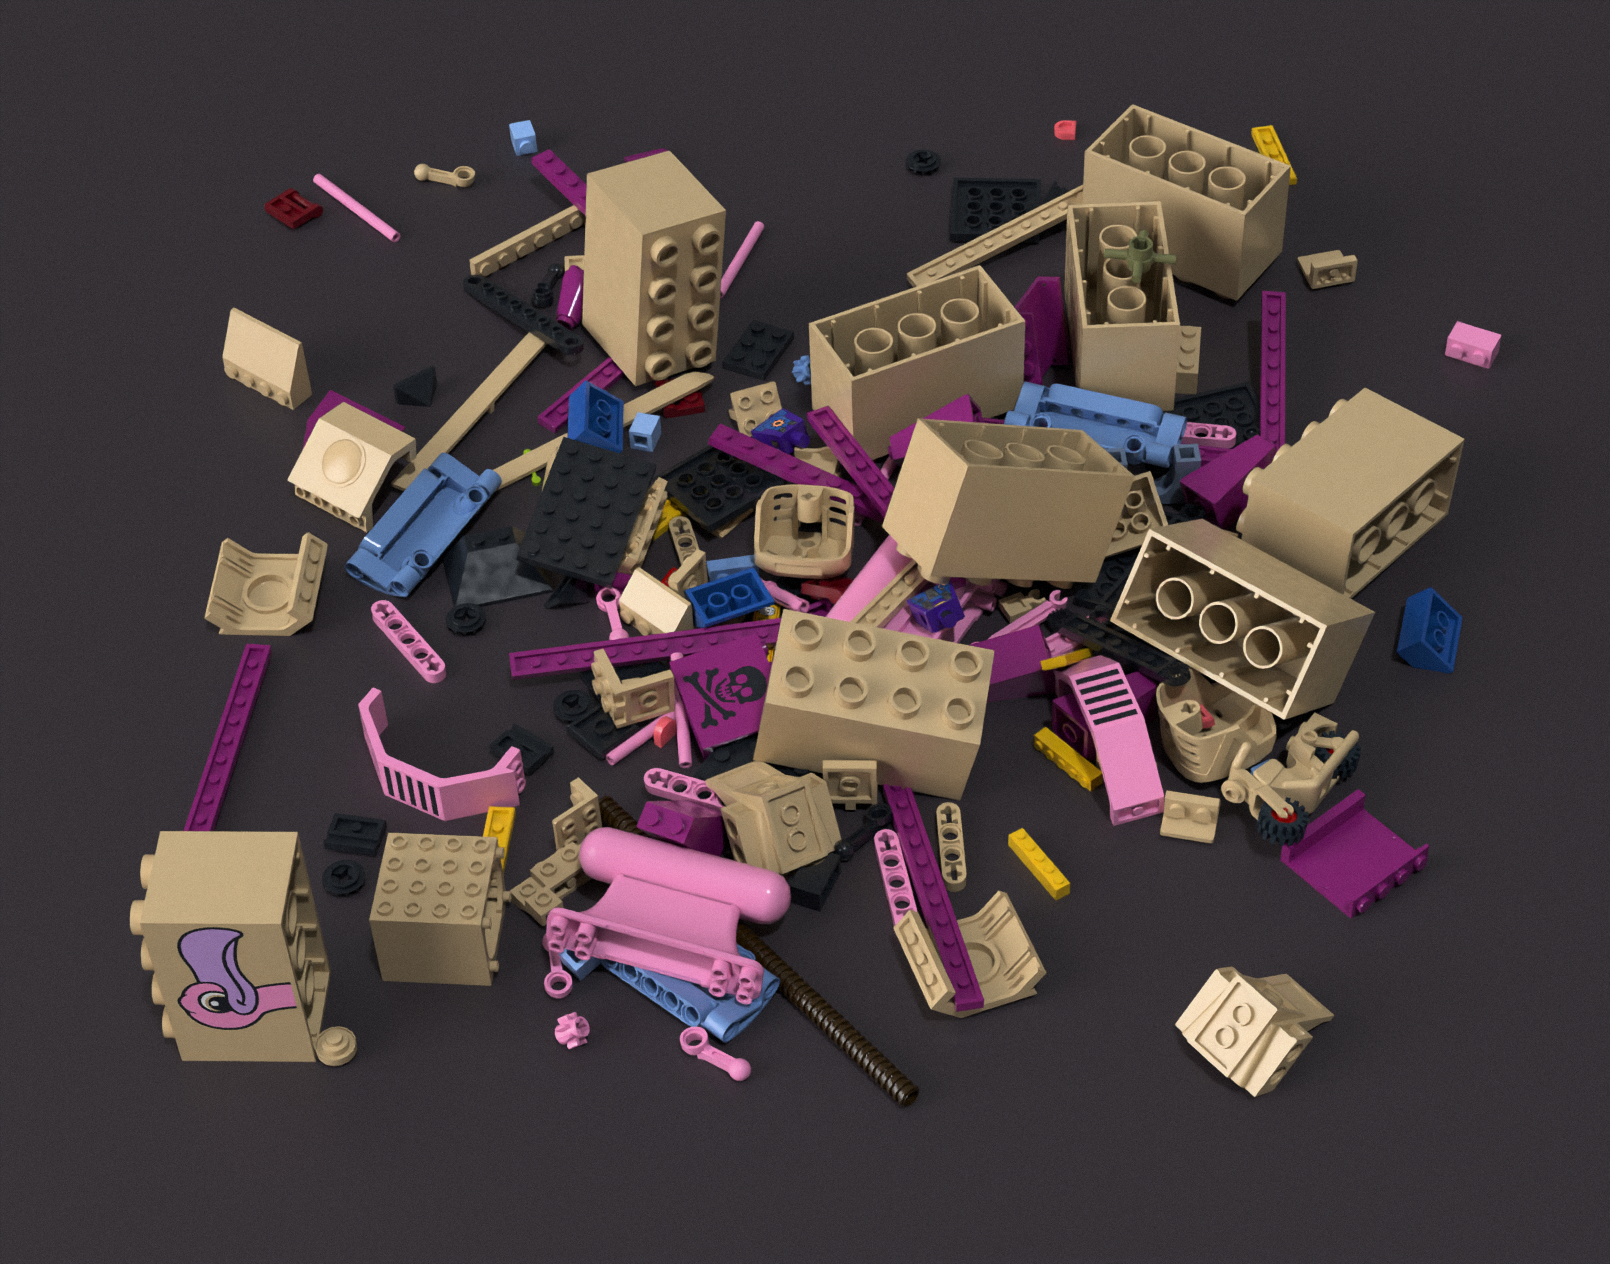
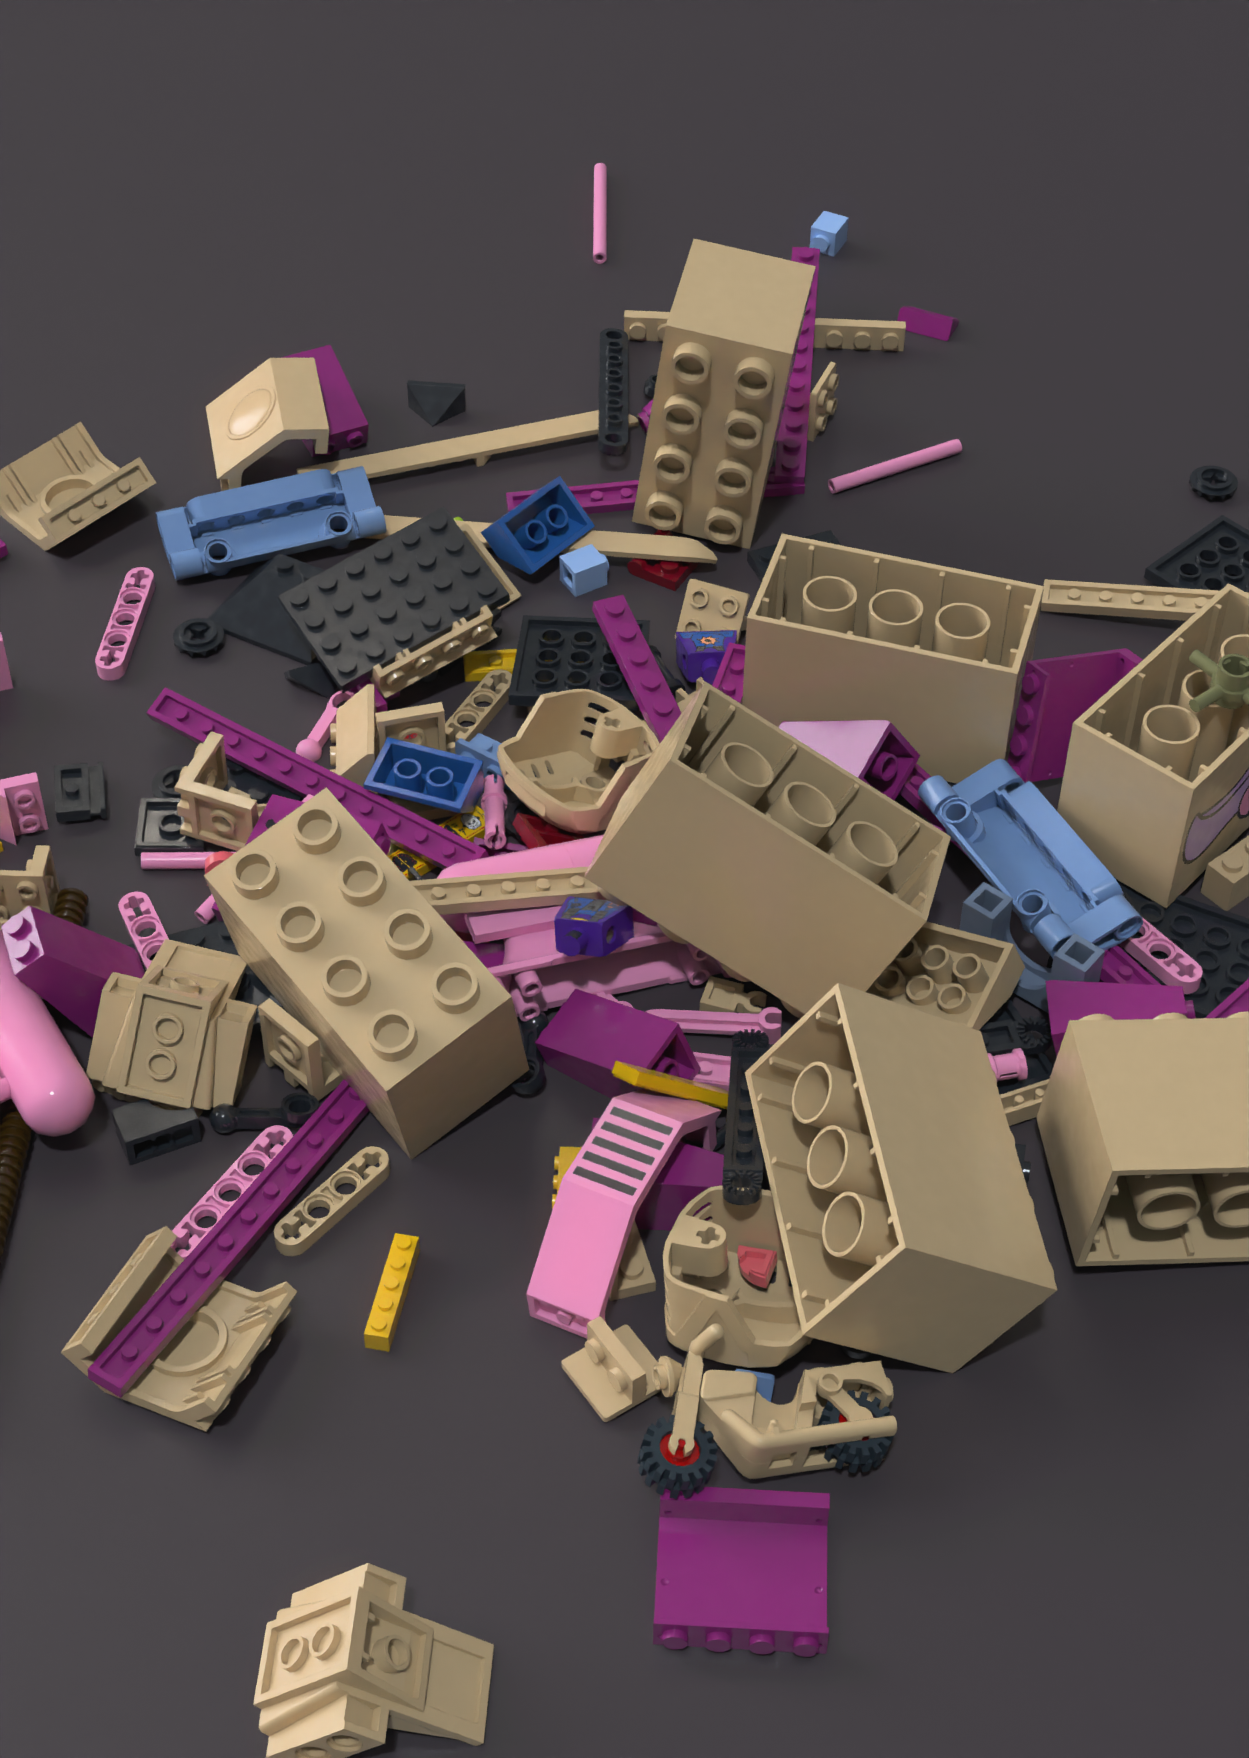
camera: 40 degrees right, 0 degrees up
(266, 360) = (323, 293): tan slope -> none
(290, 213) = (534, 181): dark red plate -> none
(424, 172) = (698, 214): tan piece -> none
(1429, 632) = (1164, 1380): blue slope -> none

